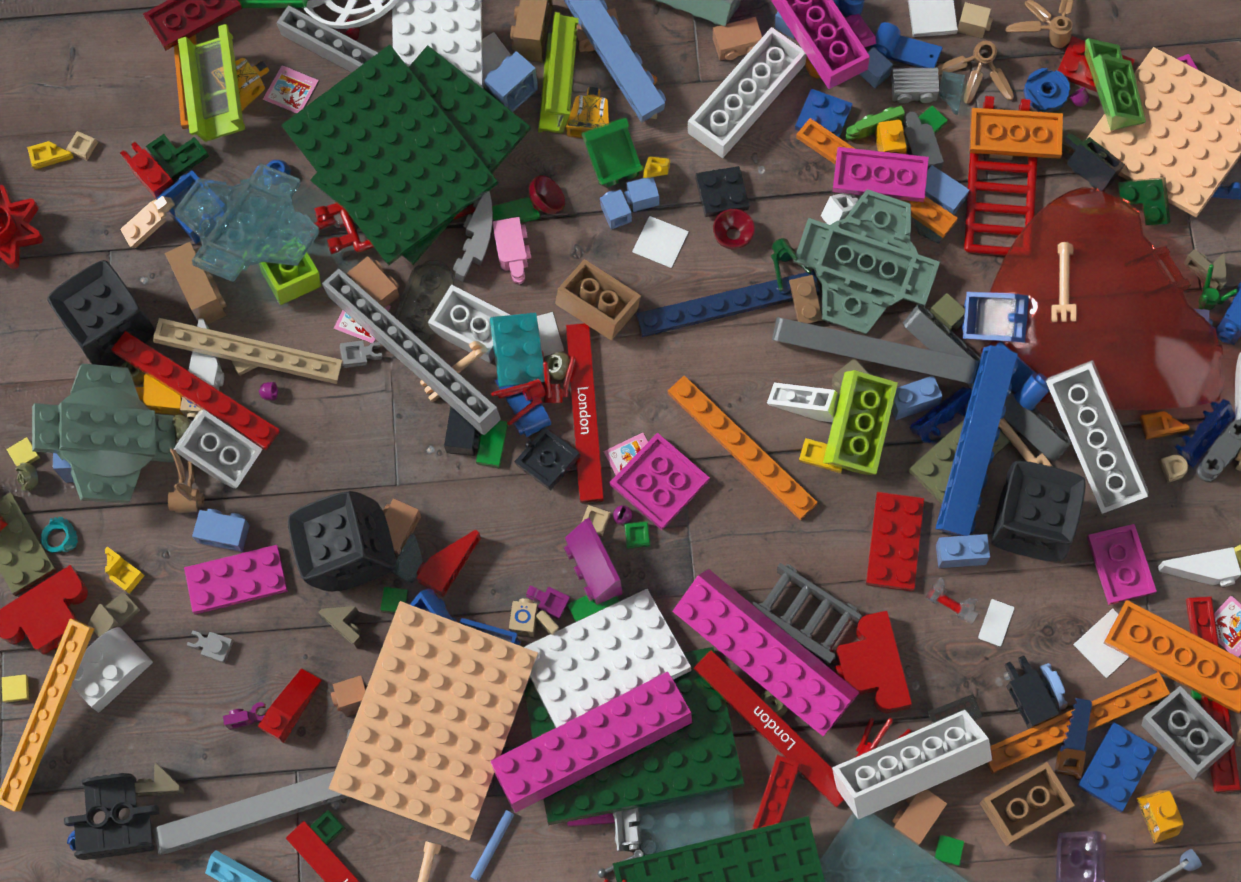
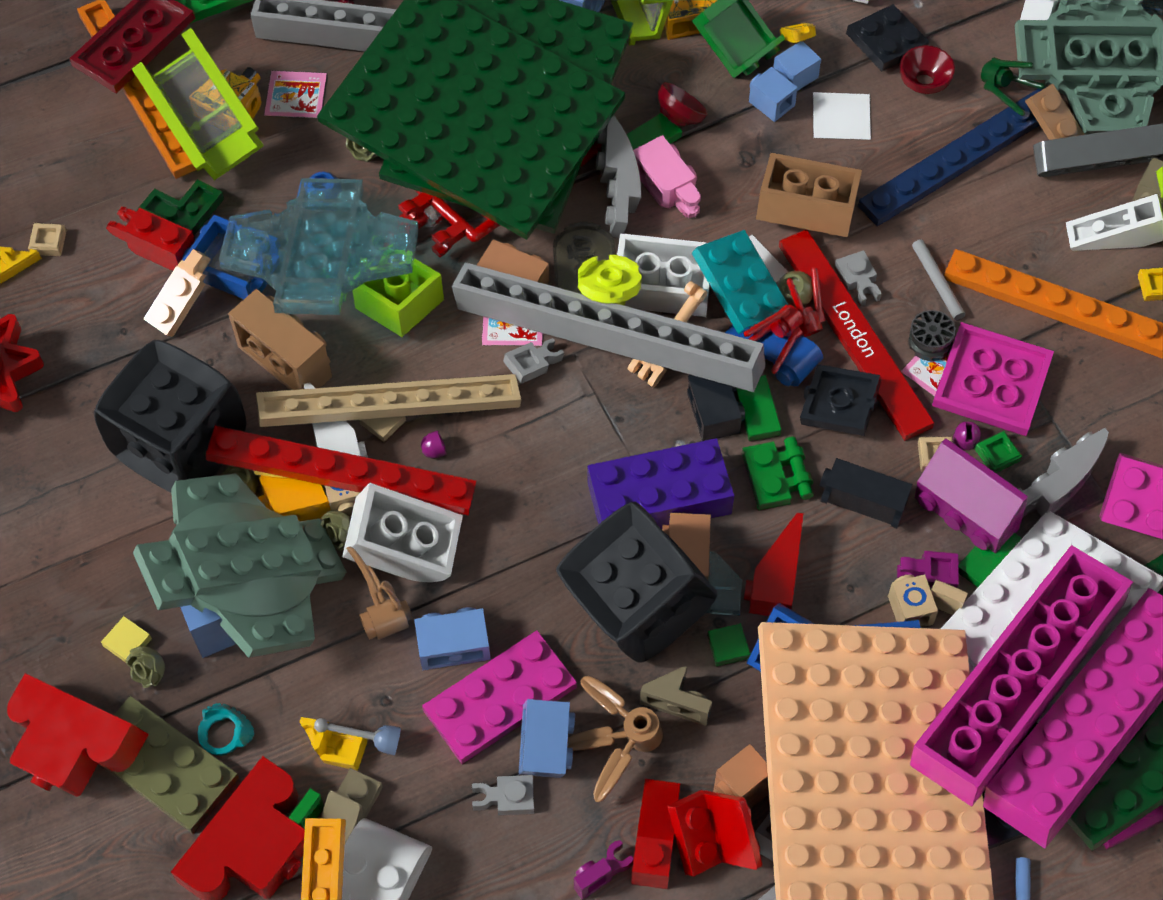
camera: 25 degrees left, 10 degrees down
(84, 609) = (309, 807): none -> green tile
(151, 581) = (384, 739): none -> hinge
(246, 620) = (545, 738): none -> medium blue brick
(306, 635) = (640, 728): none -> medium nougat plant
(317, 720) = (713, 831): none -> red bracket
(399, 476) = (664, 482): none -> dark purple brick
(424, 319) = (610, 279): none -> neon yellow tile
(475, 494) = (767, 475): none -> green plate
(531, 531) = (865, 492): none -> black brick
(551, 696) = (1020, 675): none -> dark pink brick
(608, 368) = (858, 273): none -> light grey plate
(633, 434) = (937, 327): none -> pearl dark grey wheel
(662, 392) = (938, 279): none -> light grey bar
(676, 567) = (1065, 474): none -> light grey slope

